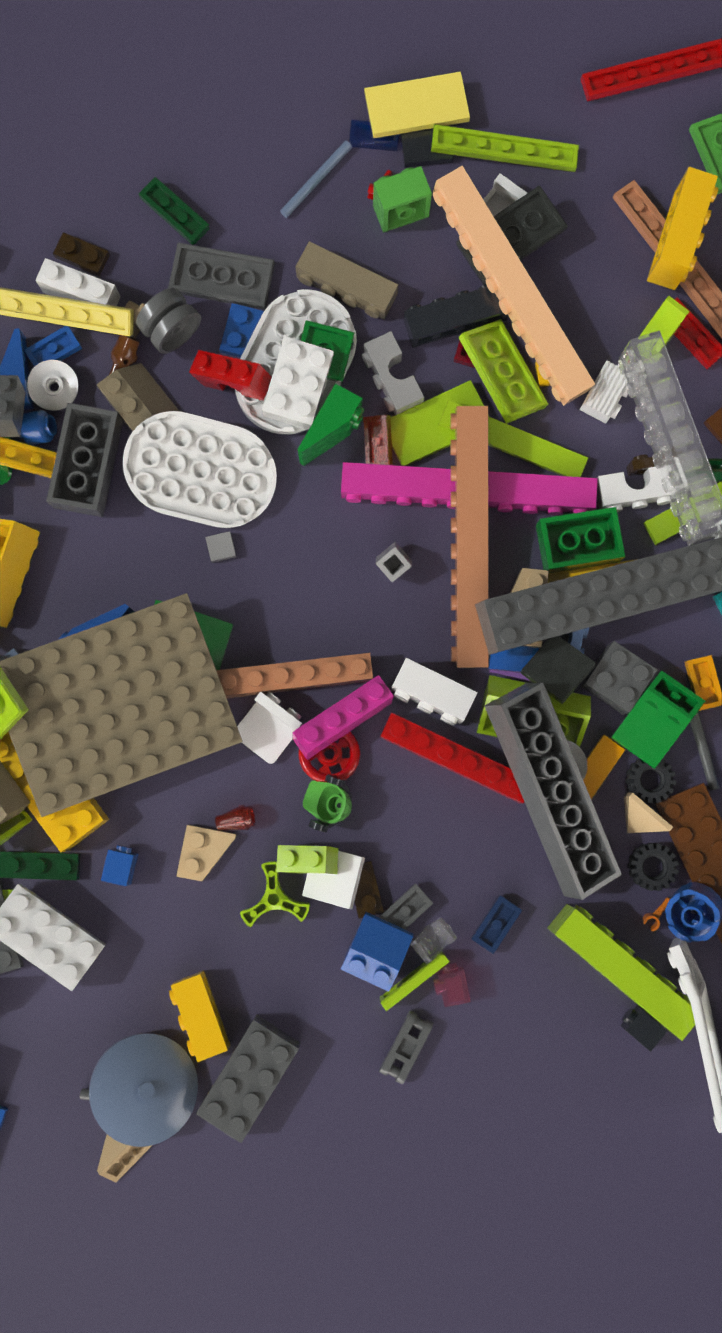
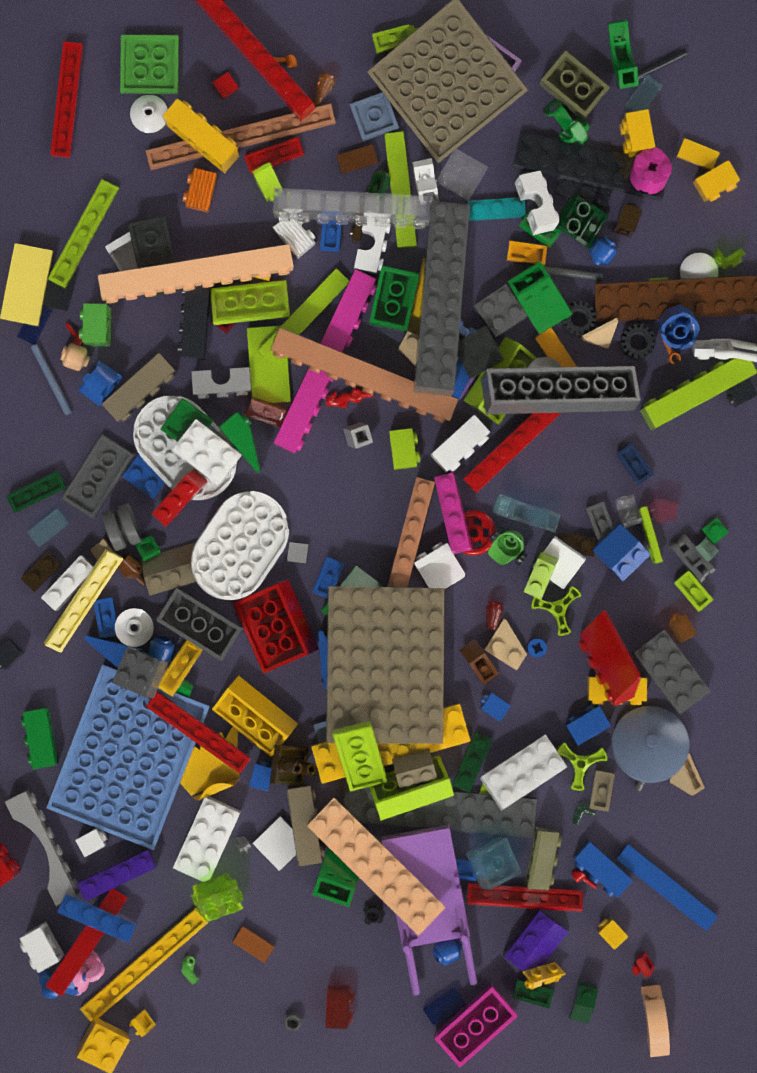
camera: 70 degrees left, 5 degrees up
(24, 1029) = (578, 814): none -> clear green animal
(62, 1048) = (601, 790): none -> dark tan plate
(87, 1006) = (580, 763): none -> lime piece
(119, 554) = (276, 626): none -> red slope
(137, 242) = (48, 527): none -> clear light blue tile
(140, 995) = (587, 724): none -> blue brick
(156, 365) = (148, 548): none -> green plate
(168, 823) = (479, 661): none -> reddish brown slope
(206, 594) = (328, 576): none -> blue plate
(214, 887) = (533, 646): none -> blue wheel
(230, 993) = (609, 659): none -> red slope
(310, 1069) = (681, 627): none -> clear orange brick
(333, 228) = (99, 383): none -> blue brick
(353, 192) = (74, 357): none -> light nougat head
(364, 1066) = (693, 591): none -> lime plate
(379, 809) = (526, 513): none -> clear light blue arch
(399, 625) = (403, 449): none -> lime brick
(424, 1062) = (707, 549): none -> sand green tile
(429, 528) = (342, 400): none -> red animal
(452, 1062) = (714, 530): none -> green plate
(614, 261) = (200, 190): none -> orange brick
(623, 436) = (330, 237): none -> blue plate
(666, 170) = (148, 123): none -> white dish

